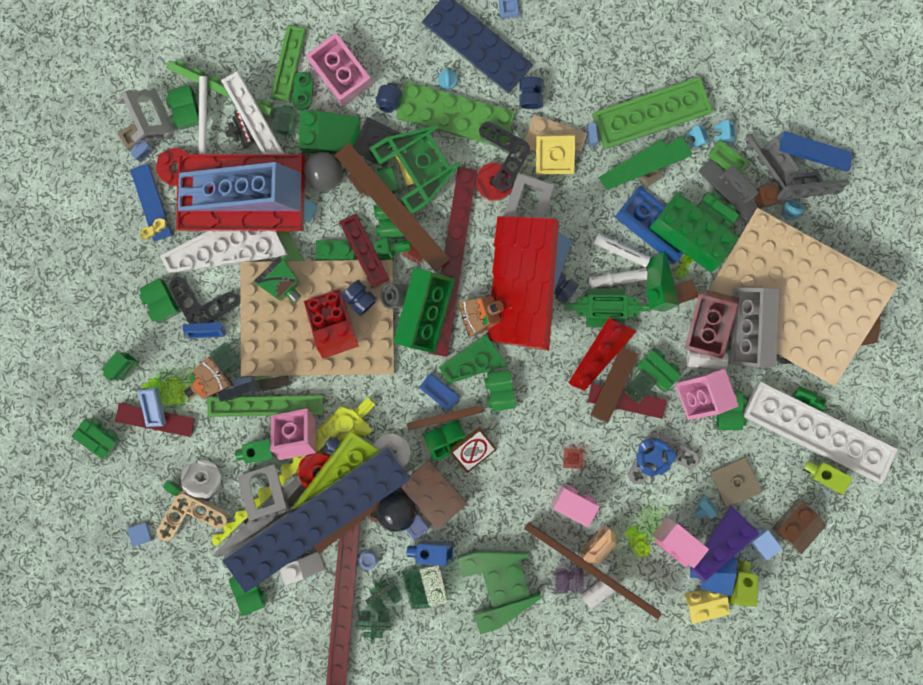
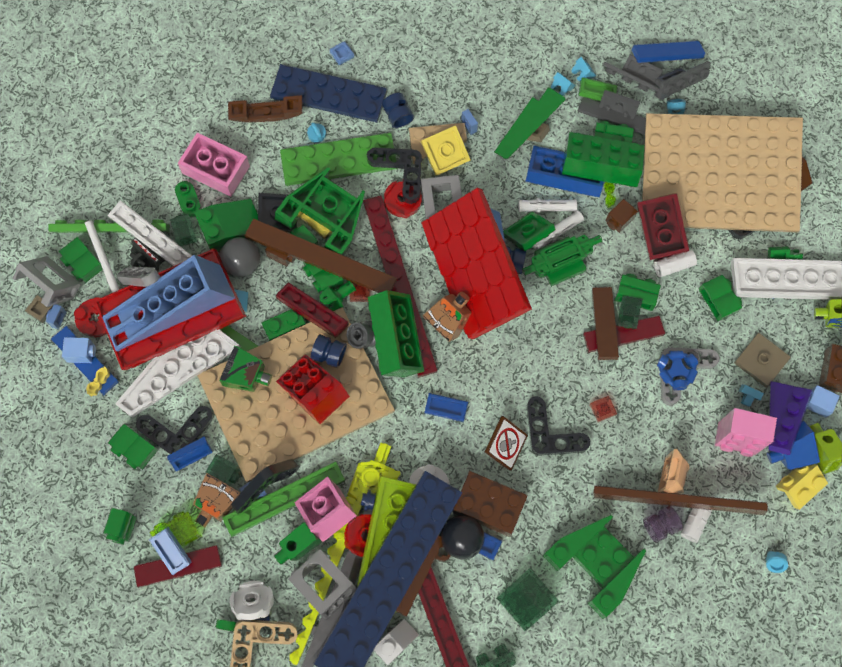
camera: 30 degrees left, 15 degrees down
(96, 438) = (124, 612): green brick -> none
(147, 193) = (78, 350): none -> light blue brick
(224, 151) = (138, 276): none -> light grey beam
(288, 63) = (163, 182): bright green tile -> none
(368, 559) = (457, 602): medium blue plate -> none
(381, 593) = (488, 626): clear green hips -> none
(388, 97) = (271, 169): dark blue head -> none
(409, 35) = (265, 111): none -> reddish brown slope
(439, 553) = (525, 557): blue torso -> none
(442, 440) = (471, 450): green brick -> none
(445, 417) = (463, 427): reddish brown tile -> none
(473, 360) = (463, 363): green wing -> none
(501, 390) = (503, 377): green brick -> none
(512, 463) = (549, 440): none -> black beam
(575, 506) = (629, 447): bright pink brick -> none
(590, 268) = (528, 231): none -> green plate
(603, 349) = (579, 293): red wing -> none
(638, 542) = (705, 453): clear neon green hips -> none
(648, 656) = (776, 562): none -> medium azure tile
(652, 113) = (512, 82): bright green plate -> none
(660, 284) = (598, 215): green slope -> none
(706, 394) = (693, 287): bright pink brick -> none
(755, 327) = (702, 211): light grey slope -> none
(767, 196) = (649, 103): reddish brown brick -> none

